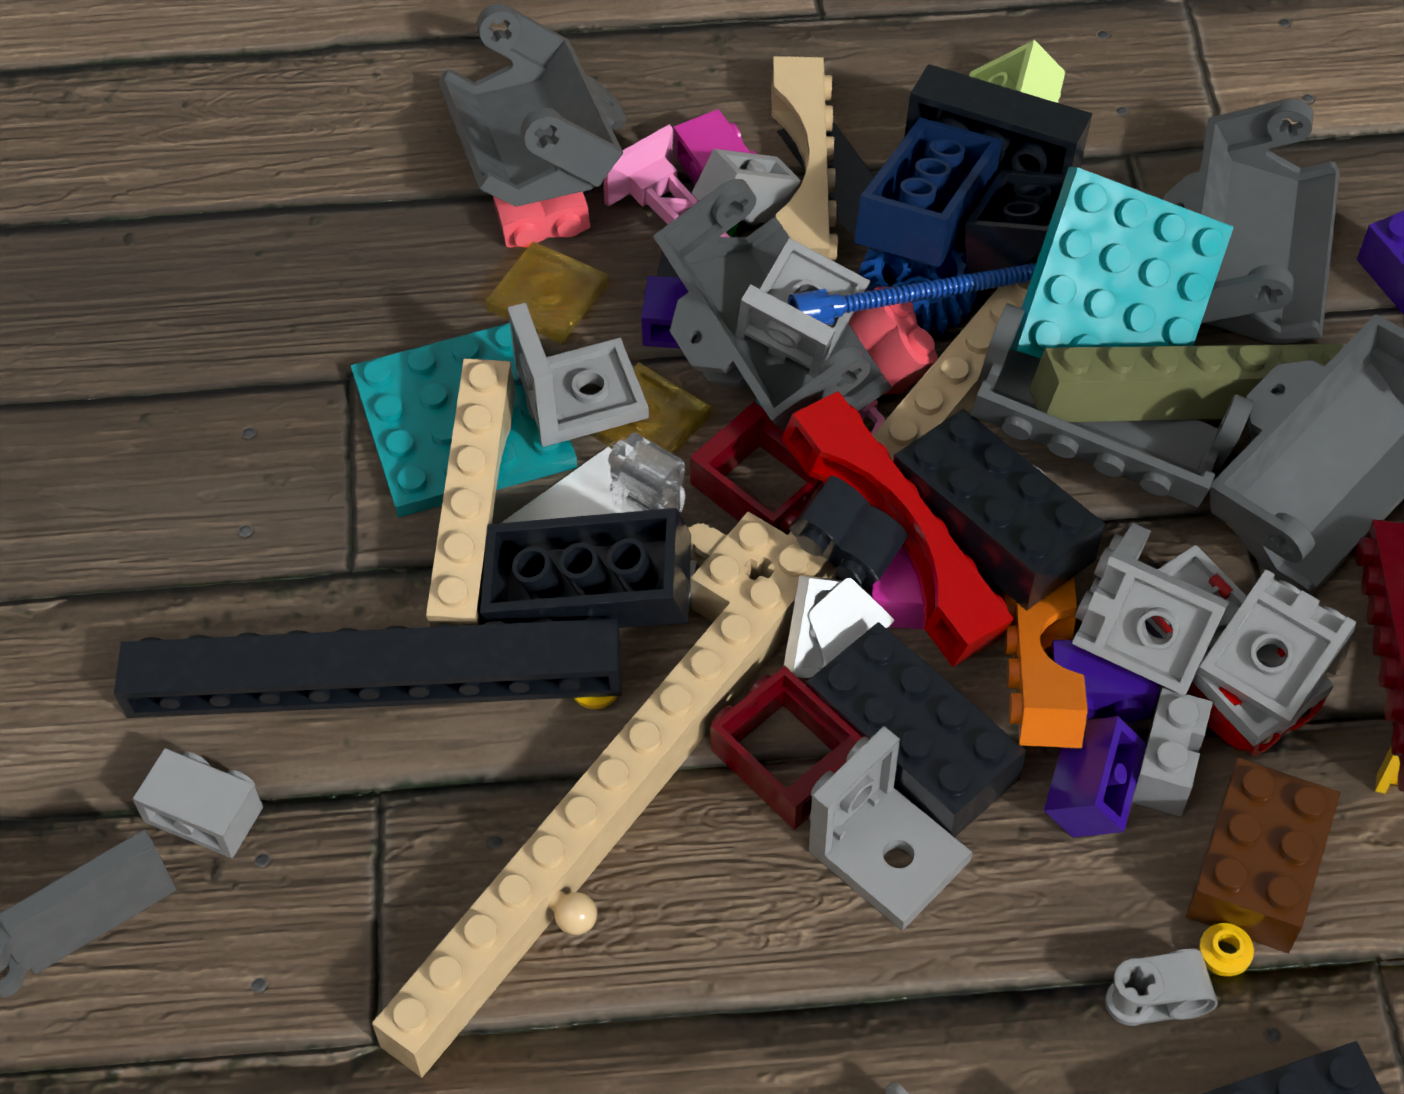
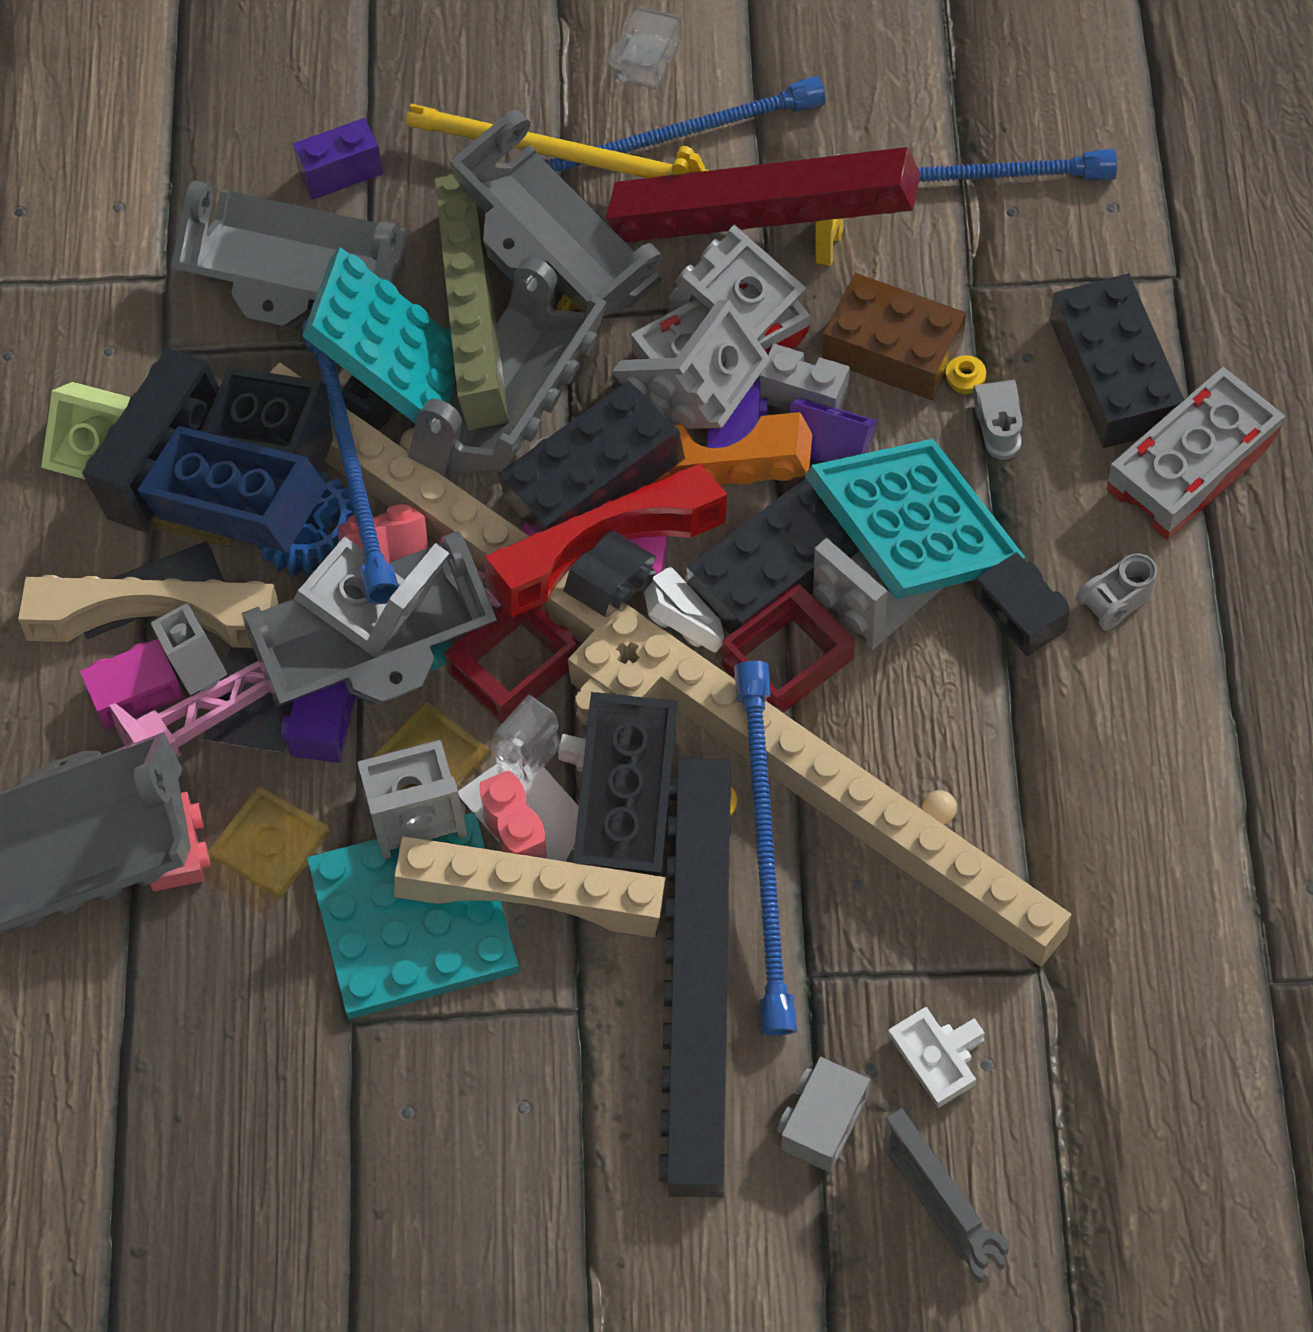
camera: 85 degrees left, 5 degrees up
(264, 921) = (938, 1053): none -> white hinge
(332, 751) = (777, 1006): none -> blue hose
(557, 485) = (510, 817): none -> coral brick
(875, 1016) = (1022, 603): none -> black brick
(973, 871) = (912, 517): none -> teal plate

